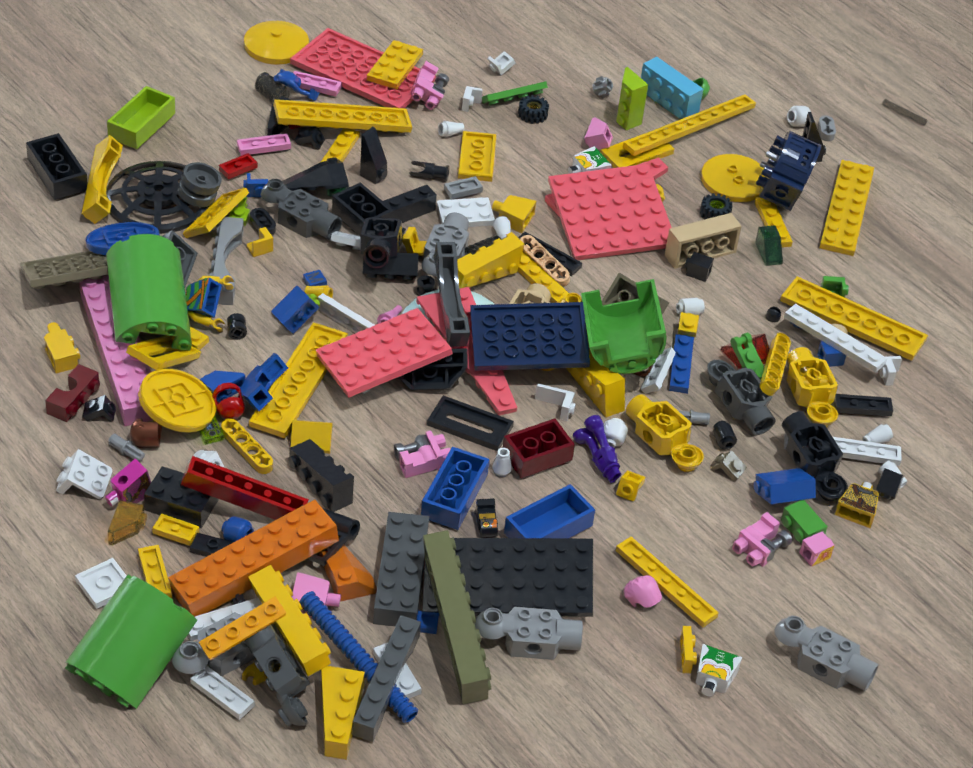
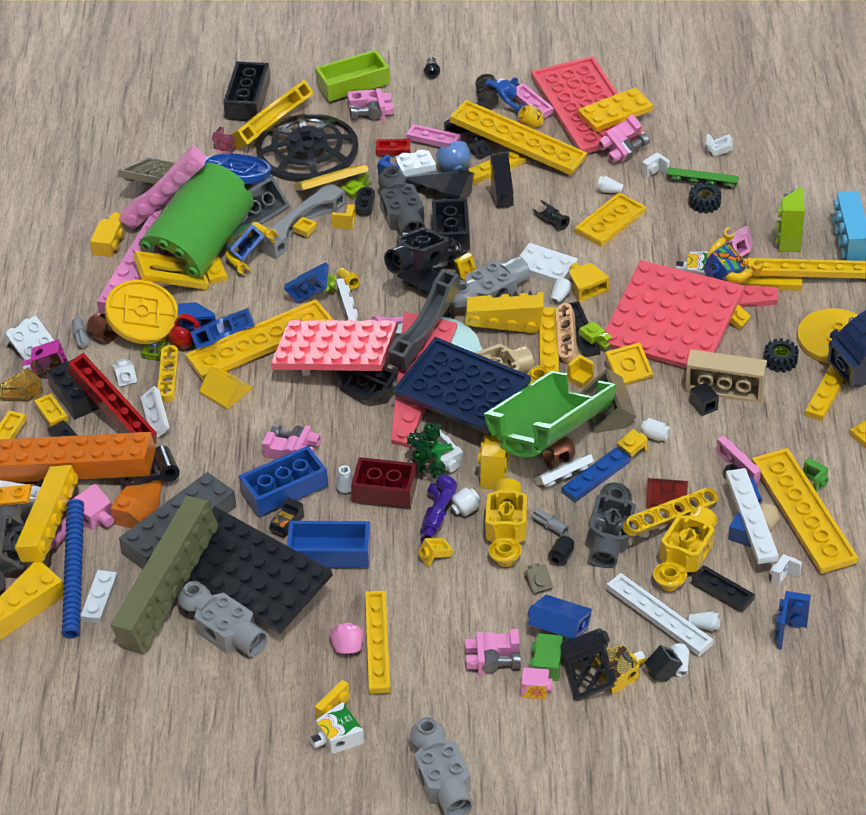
camera: 45 degrees right, 0 degrees up
(79, 221) = (222, 141): none -> clear pink bracket
(82, 384) = (71, 279): dark red arch -> none
(98, 407) = (90, 293): black bracket -> none
(114, 249) = (144, 205): none -> bright pink arch
(179, 136) = (370, 103): none -> bright pink hips
(199, 184) = (334, 147): dark grey wheel -> none
(200, 86) = (432, 68): none -> black cone
(234, 264) = (304, 226): none -> yellow plate
(236, 326) = (254, 277): black wheel -> none
(236, 528) = (90, 427): blue head -> none
(268, 476) = (155, 411): none -> white plate
(274, 41) = (537, 51): yellow dish -> none
(274, 169) = (415, 162): none -> white plate
(306, 154) = (454, 156): none -> medium blue cylinder
(314, 278) = (359, 266): blue tile -> none
(322, 475) = (194, 422): black wedge -> none
(331, 94) = (530, 116): none -> yellow head
(375, 701) = (40, 612): dark grey arch -> none
(413, 203) = (497, 236): black slope -> none
(448, 407) = (357, 417): black piece -> none
(463, 187) = (564, 241): light grey plate -> none
(558, 405) = (427, 450): none -> dark green plant
(568, 252) = (594, 333): none -> lime plate
(588, 282) = (580, 371): none -> yellow panel
(615, 152) = (726, 263): none -> torso
(617, 261) = (629, 363): none -> yellow plate
(747, 357) = (652, 494): bright green plate -> none
(765, 300) = (733, 455): none -> bright pink plate
(769, 245) = (793, 409): clear green slope -> none
(815, 453) = (615, 599): black brick -> none
(835, 496) = (587, 648): none -> black piece
(935, 403) = (794, 613): none -> blue bracket

